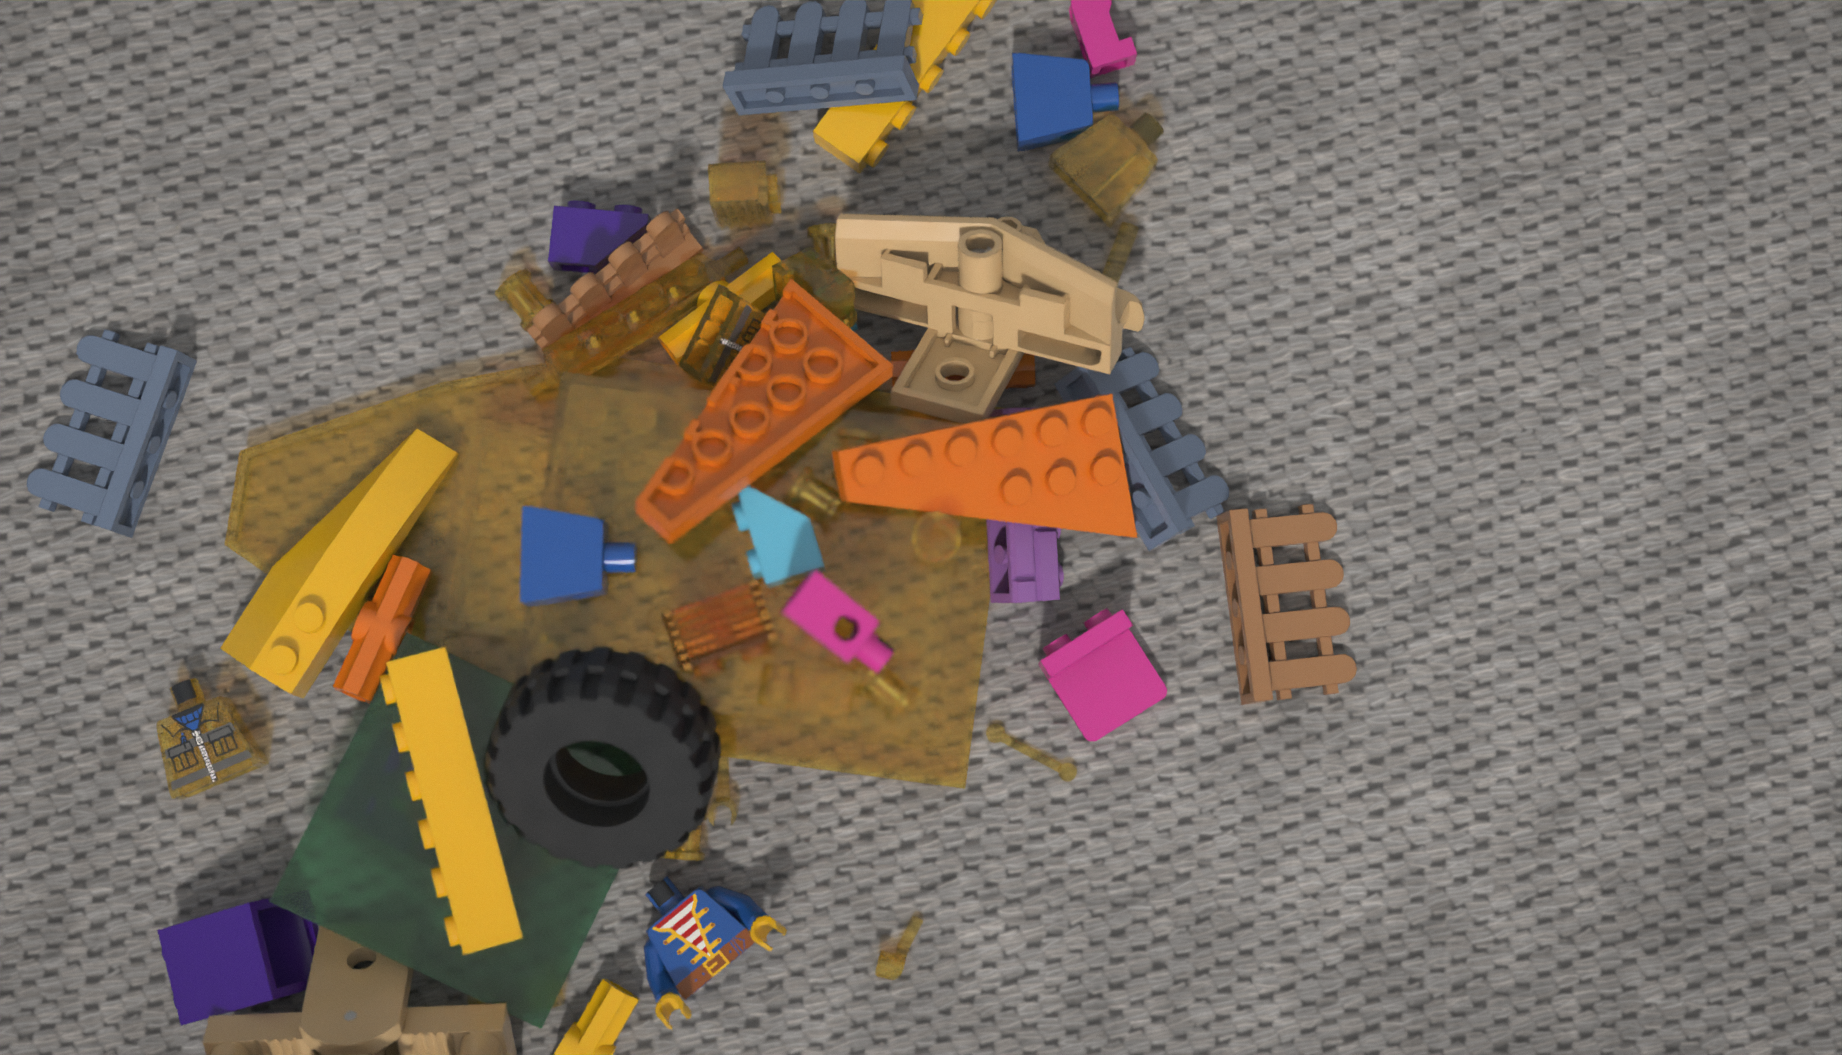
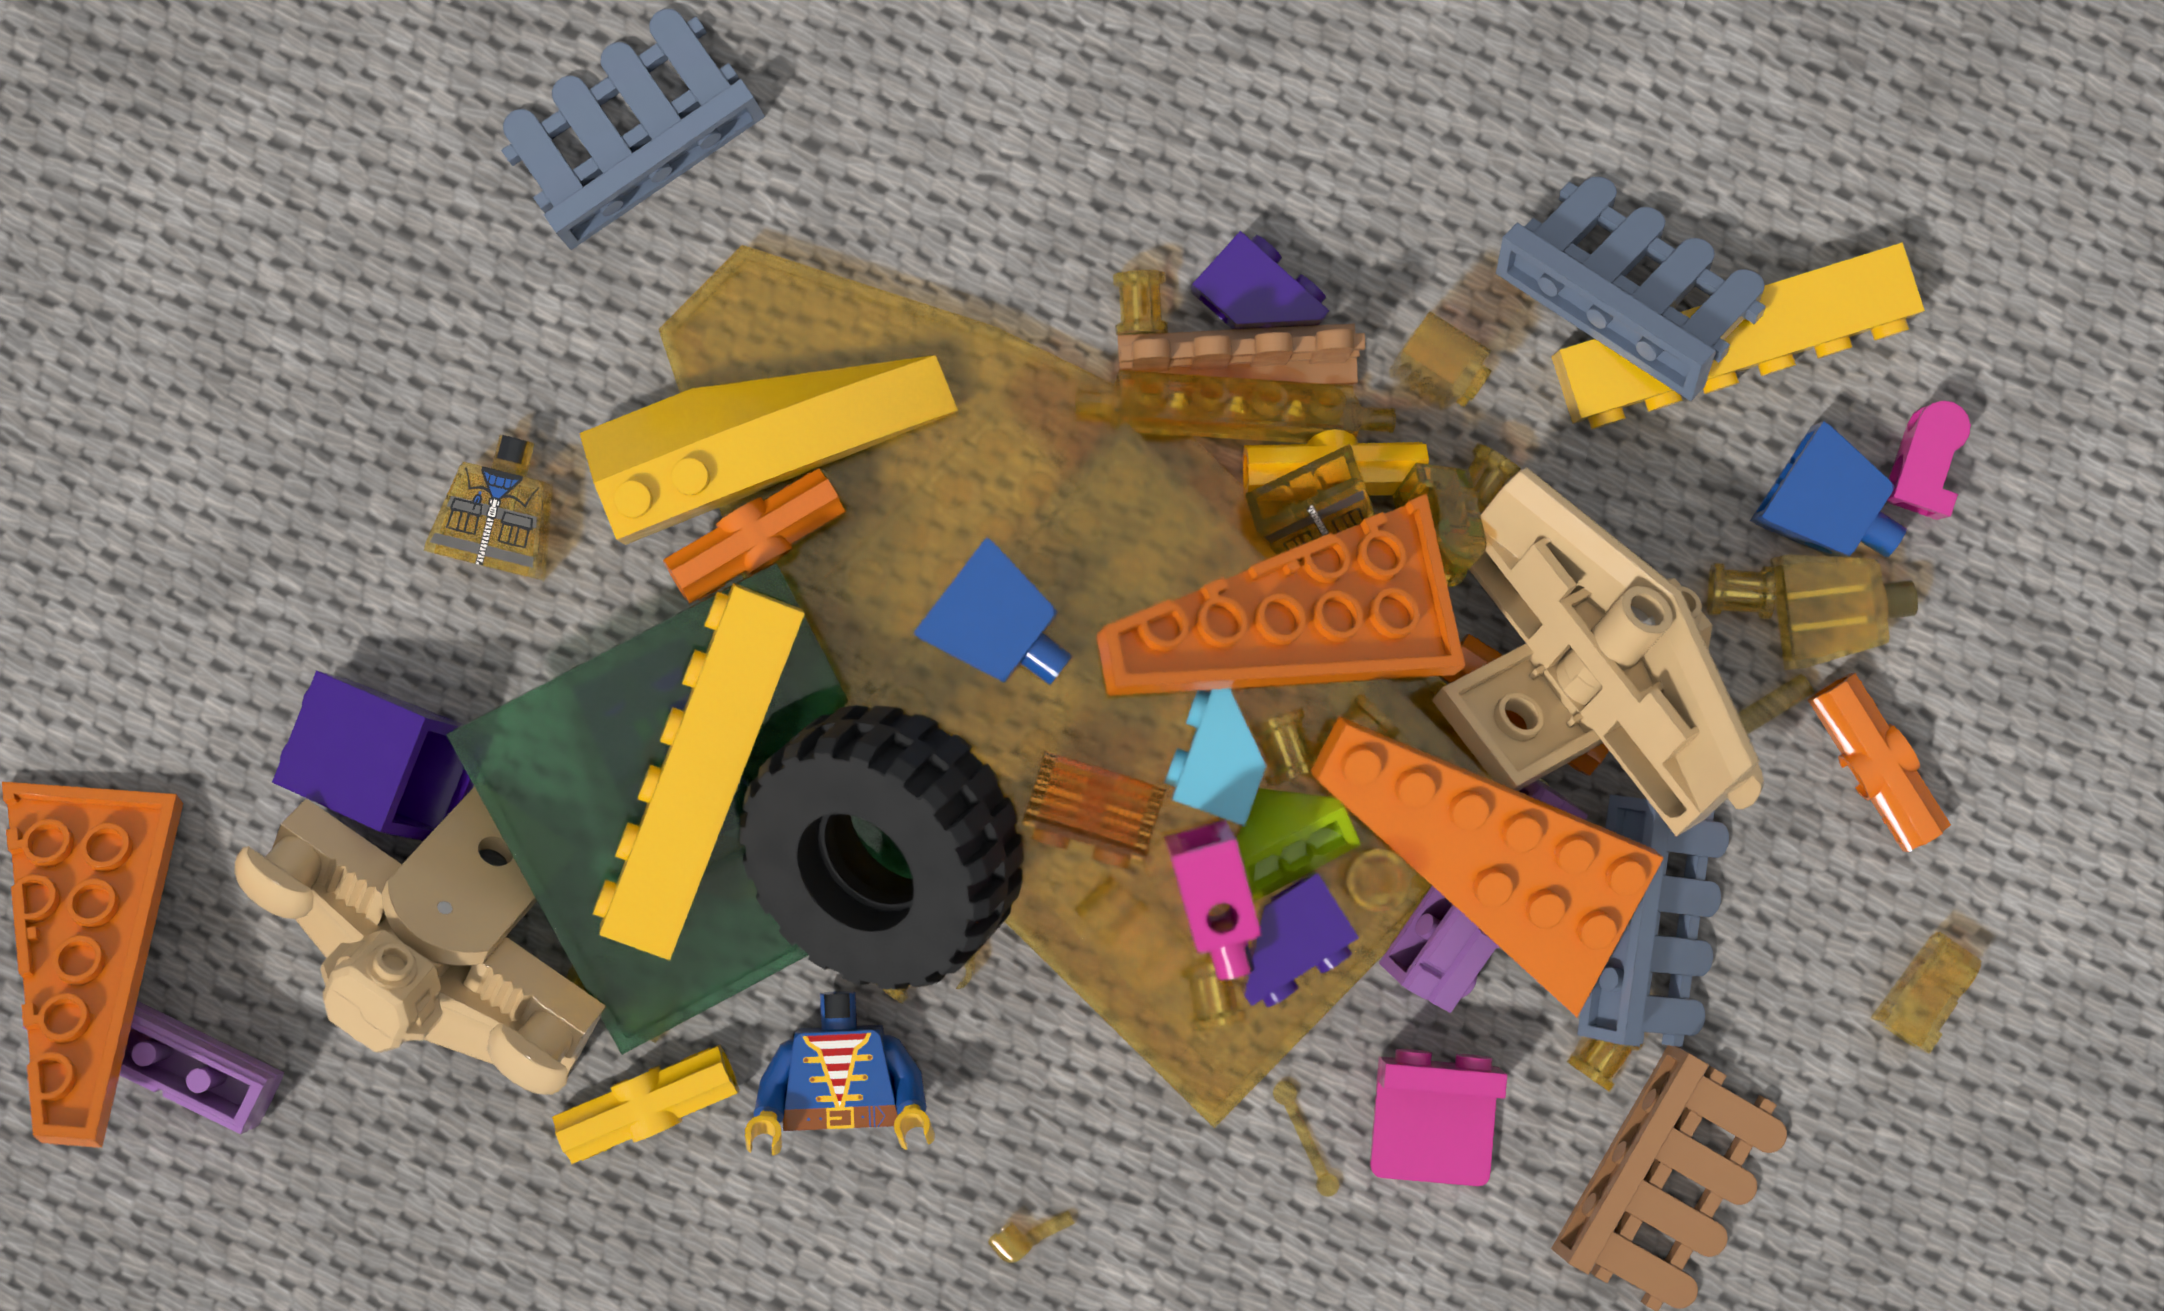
camera: 35 degrees right, 5 degrees up
(863, 554) = (1291, 837): none -> lime slope
(909, 612) = (1298, 931): none -> dark purple slope
(1043, 197) = (1741, 590): none -> clear yellow bush
(1180, 556) = (1601, 1060): none -> clear yellow bush
(1212, 239) = (1880, 762): none -> orange piece
(1353, 361) = (1928, 992): none -> clear yellow leg

